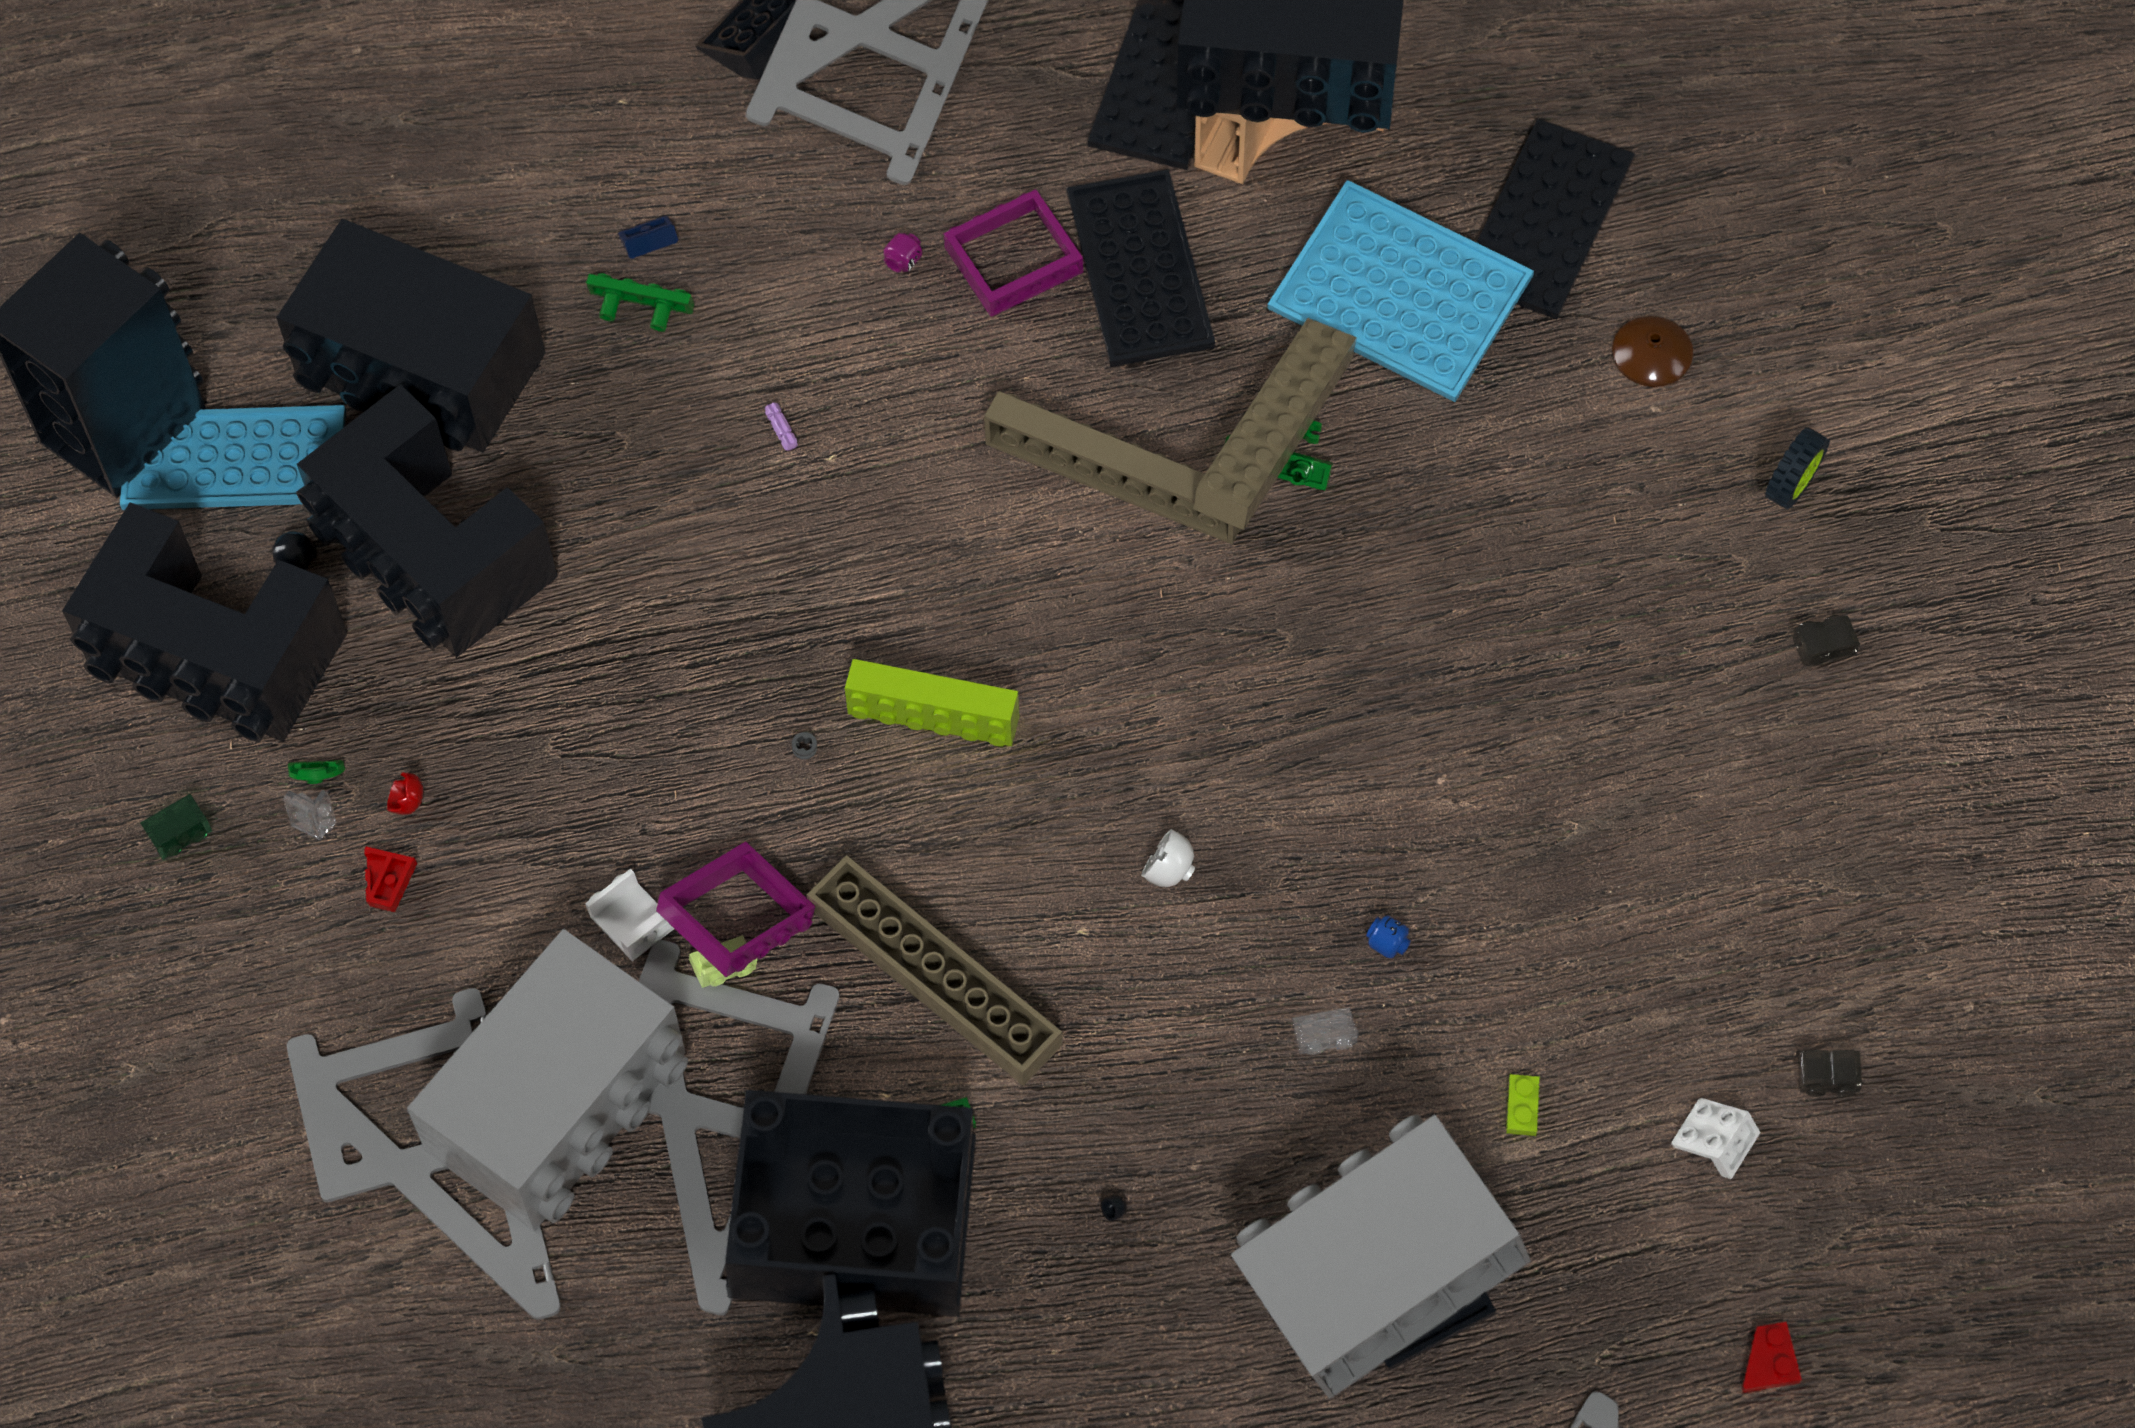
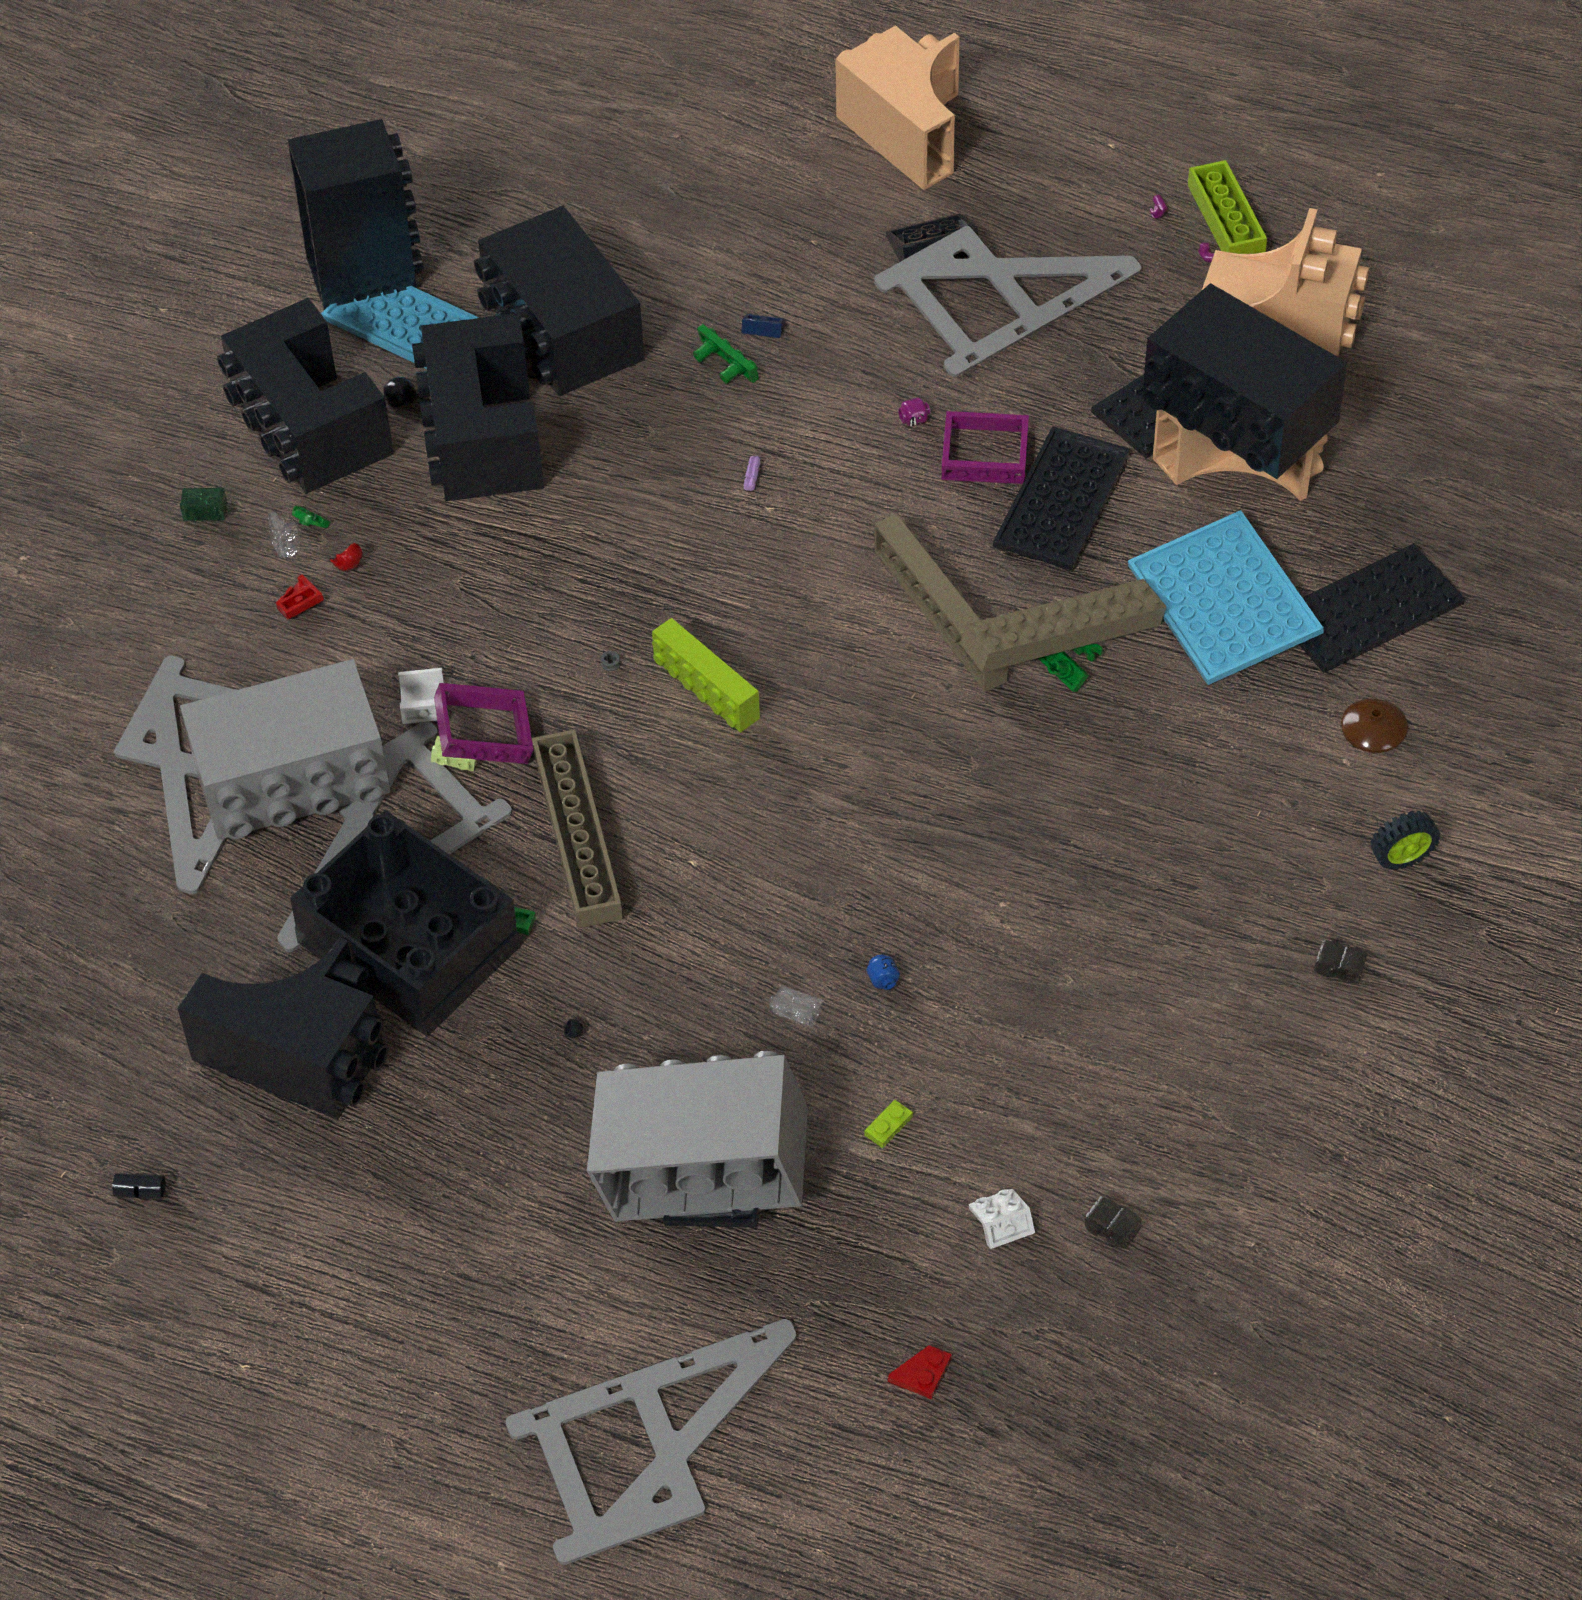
camera: 35 degrees right, 10 degrees down
(1170, 861) = (779, 848): white cylinder -> none

